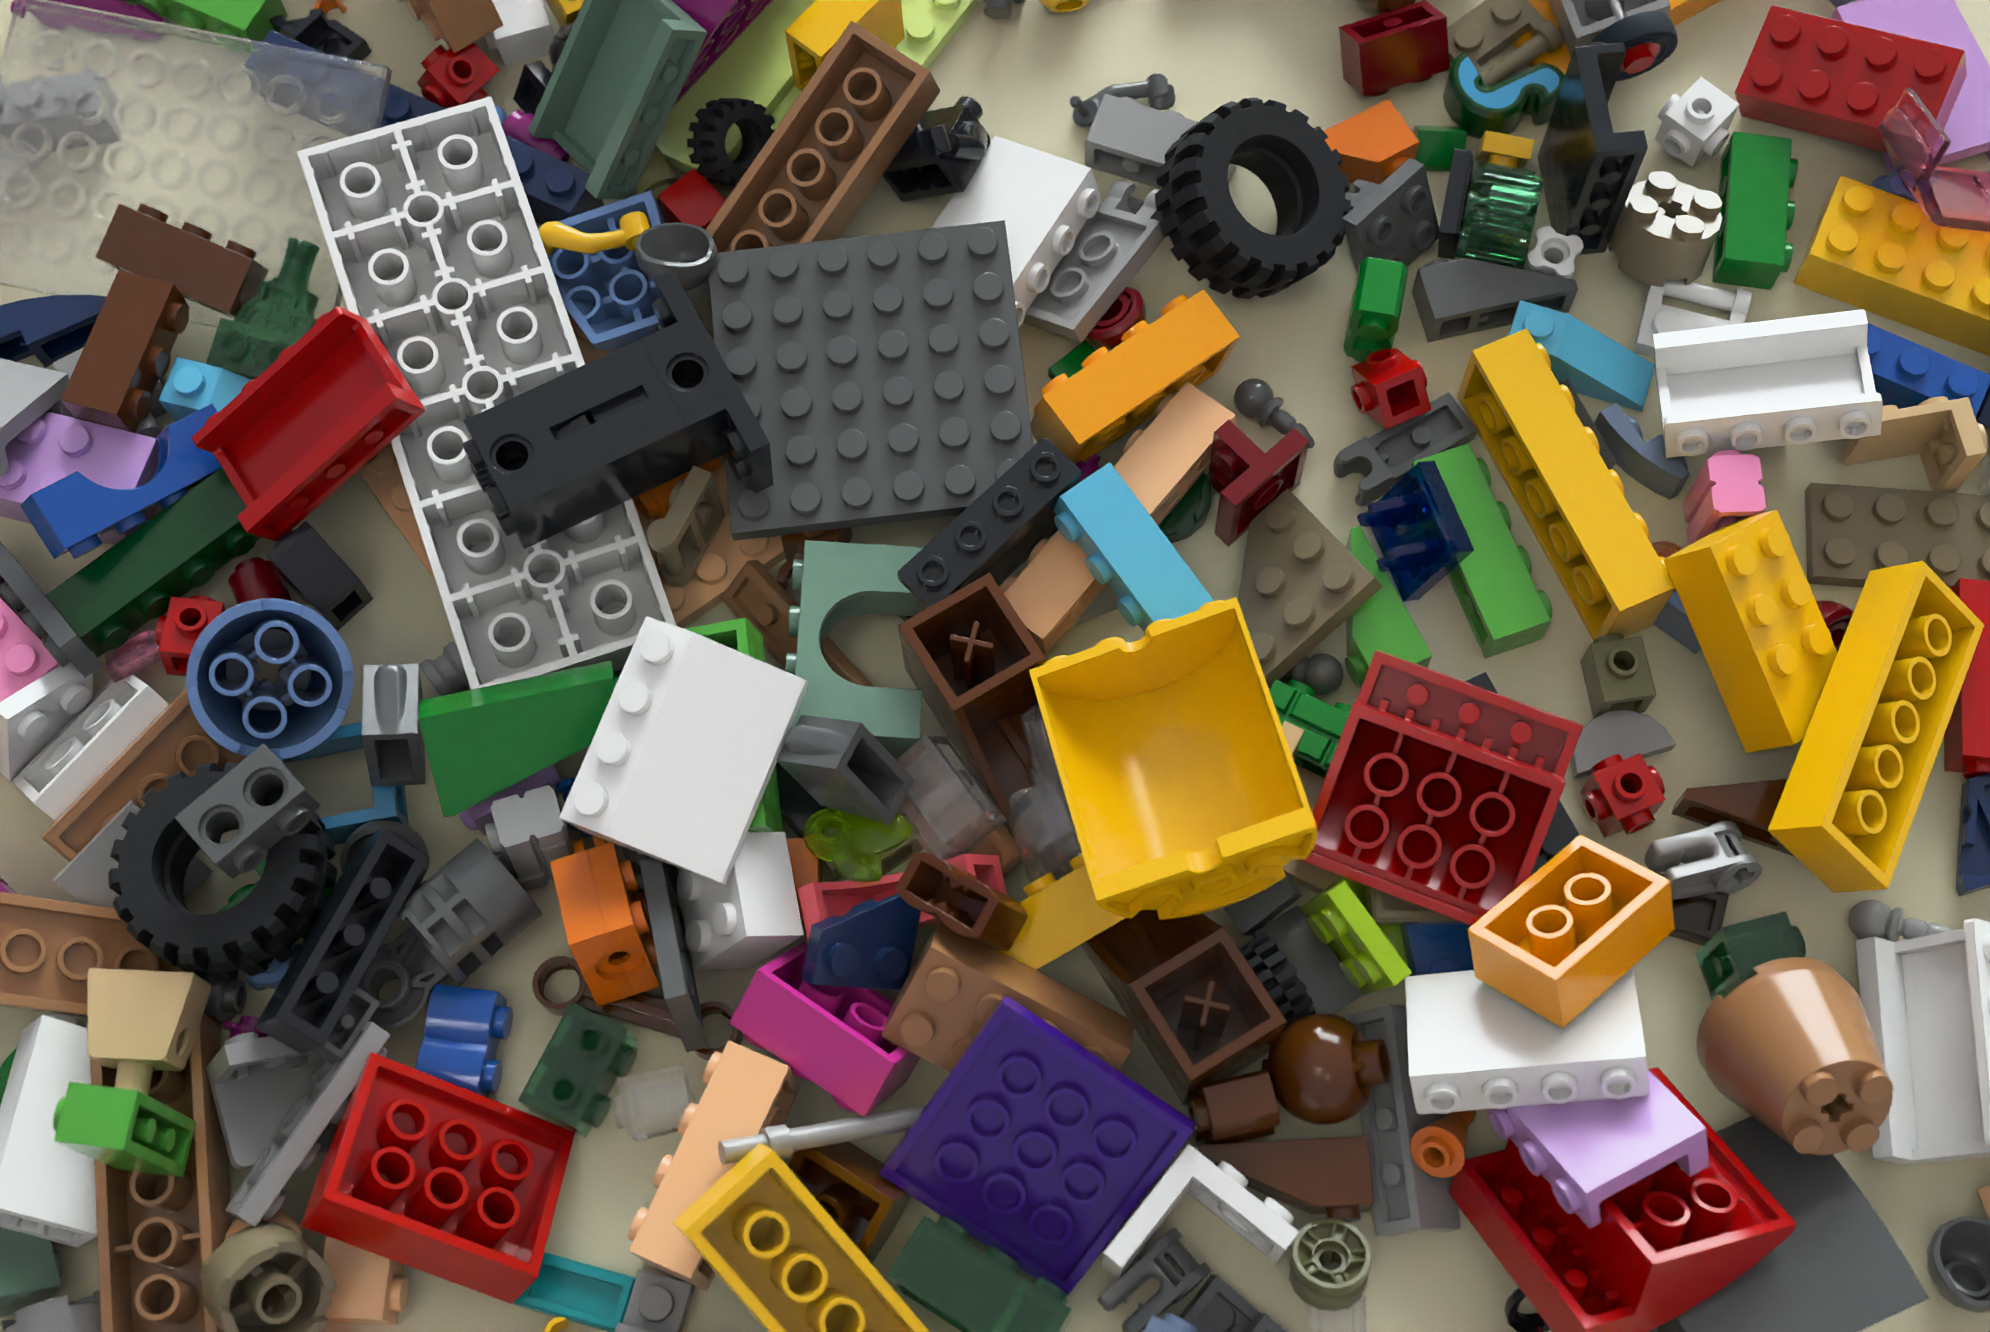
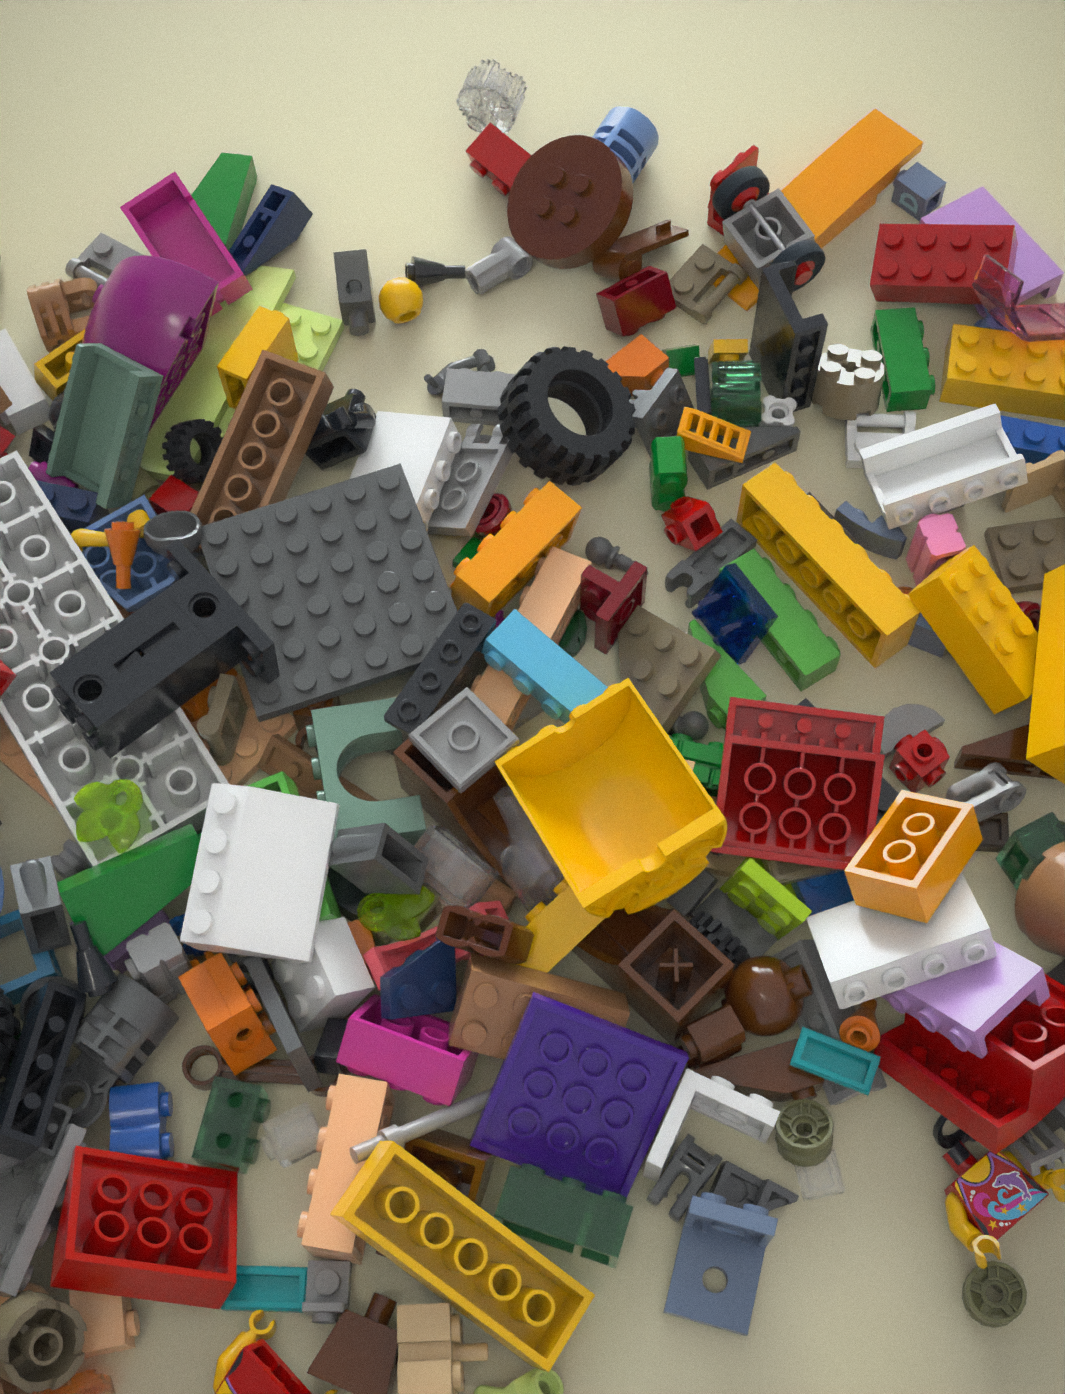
camera: 15 degrees left, 5 degrees down
(442, 827) = (93, 970): none -> black cone
(500, 627) = (105, 817): none -> clear neon green plate
(605, 256) = (122, 544): none -> orange cone
(726, 998) = (329, 1046): none -> black piece
(995, 630) = (463, 739): none -> light grey plate
(1394, 1180) = (835, 1061): none -> teal tile
(1445, 248) = (703, 423): none -> light orange slope
(1503, 104) = (701, 328): dark green animal -> none
(1586, 357) = (821, 477): medium azure slope -> none
(1617, 675) = (894, 682): olive brick -> none
(1696, 122) = (849, 309): white brick -> none

